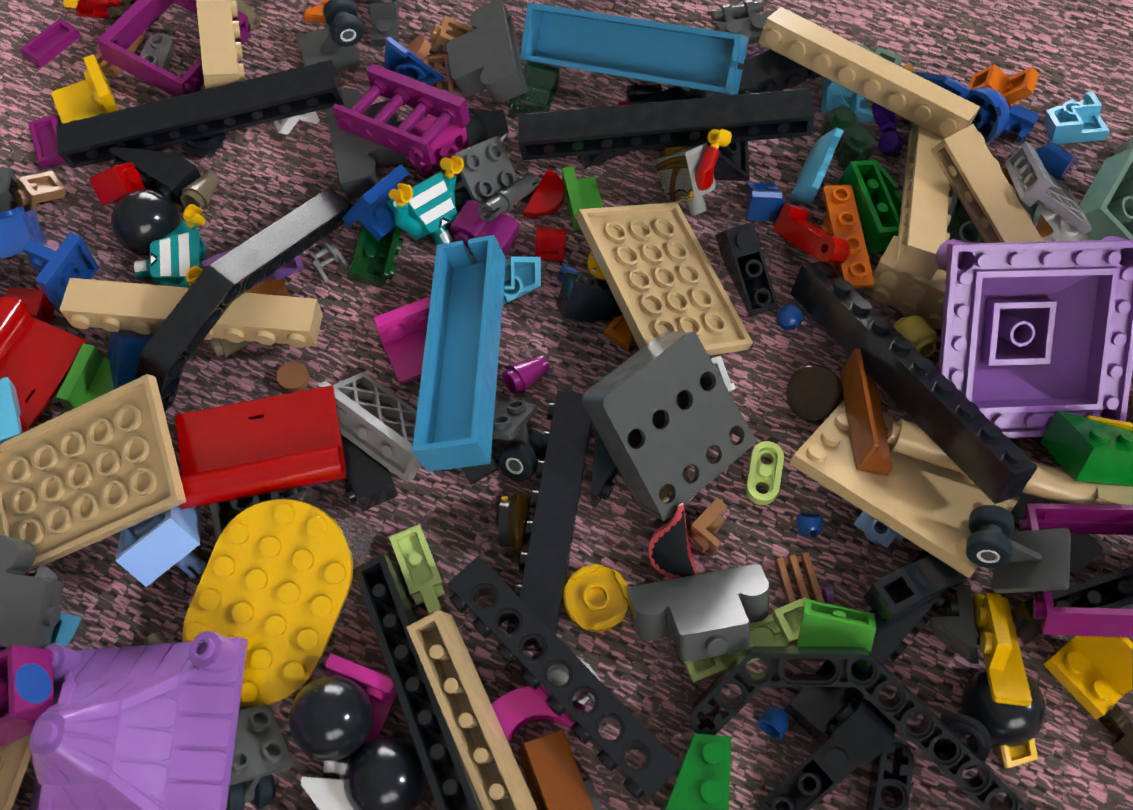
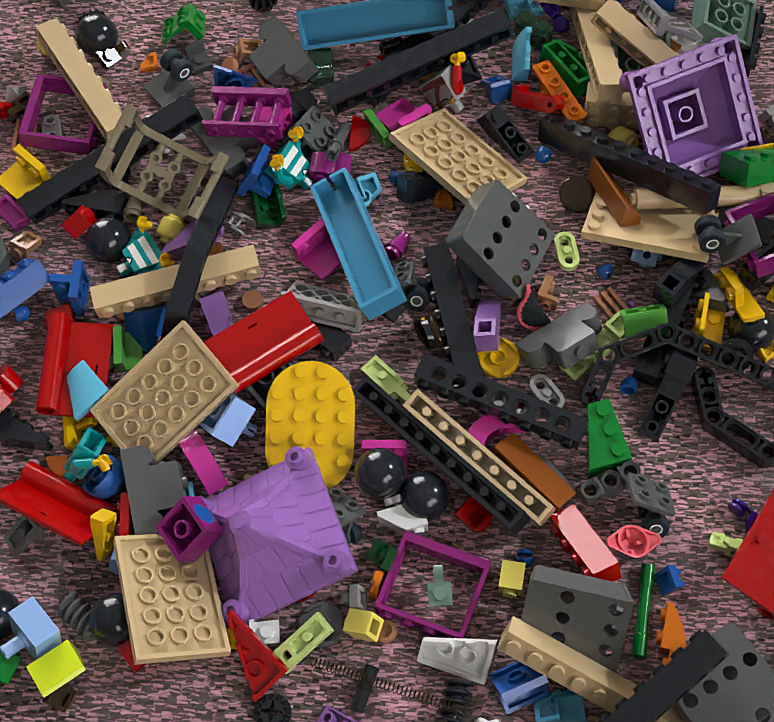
camera: 15 degrees left, 0 degrees up
(98, 592) = (203, 462): none -> dark pink arch
(206, 58) = (216, 163): none -> dark tan windscreen
(231, 233) = (169, 227): none -> light yellow head
(232, 376) = (216, 312): none -> medium lavender slope
(550, 243) = (376, 161): red tile -> none
(598, 542) = (487, 325): none -> medium lavender slope
(614, 190) = (401, 114): none -> dark pink bracket
(644, 685) = (549, 392): none -> light grey plate
(936, 672) = (708, 322): none -> yellow bracket

